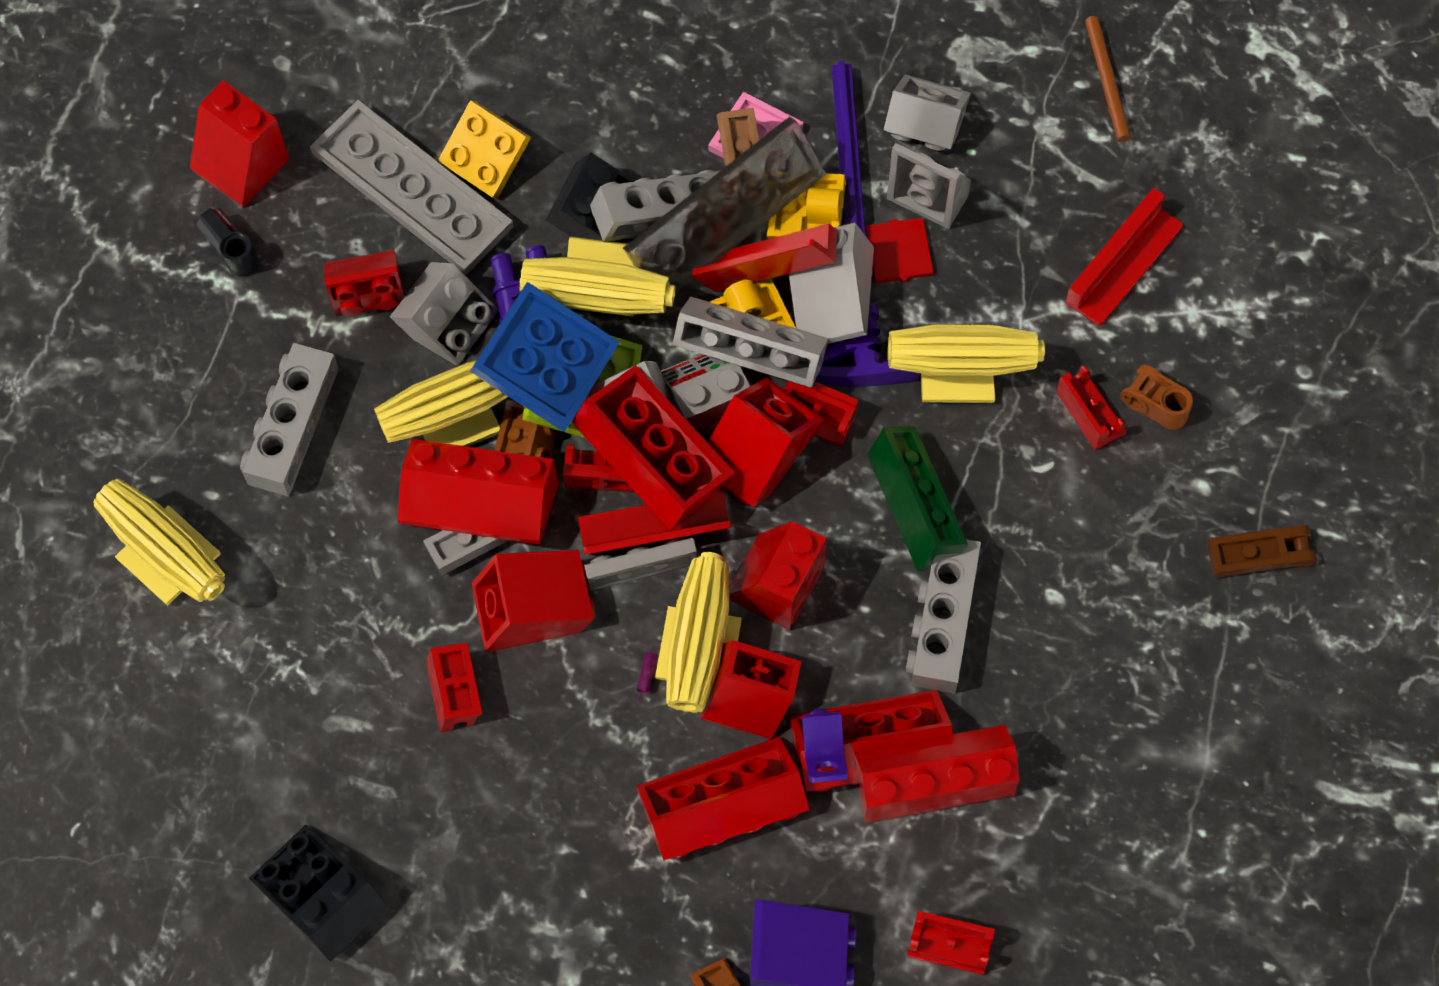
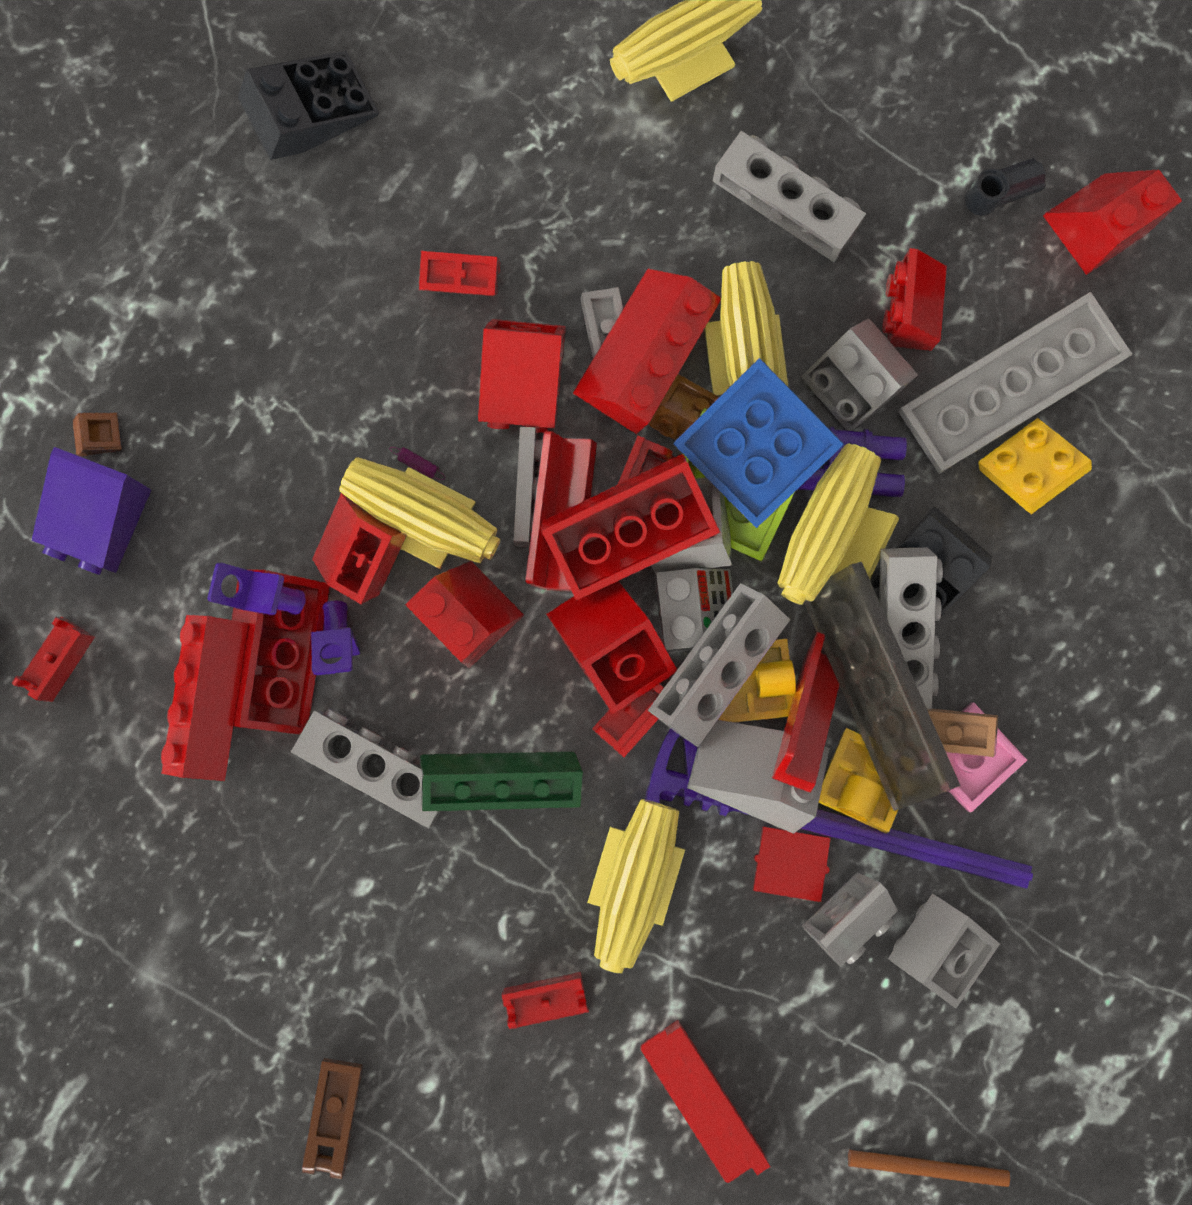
camera: 105 degrees right, 15 degrees up
(723, 798) = (266, 490): red slope -> none
(840, 682) = (334, 641): none -> dark purple bracket
(1151, 394) = (535, 1074): dark orange piece -> none

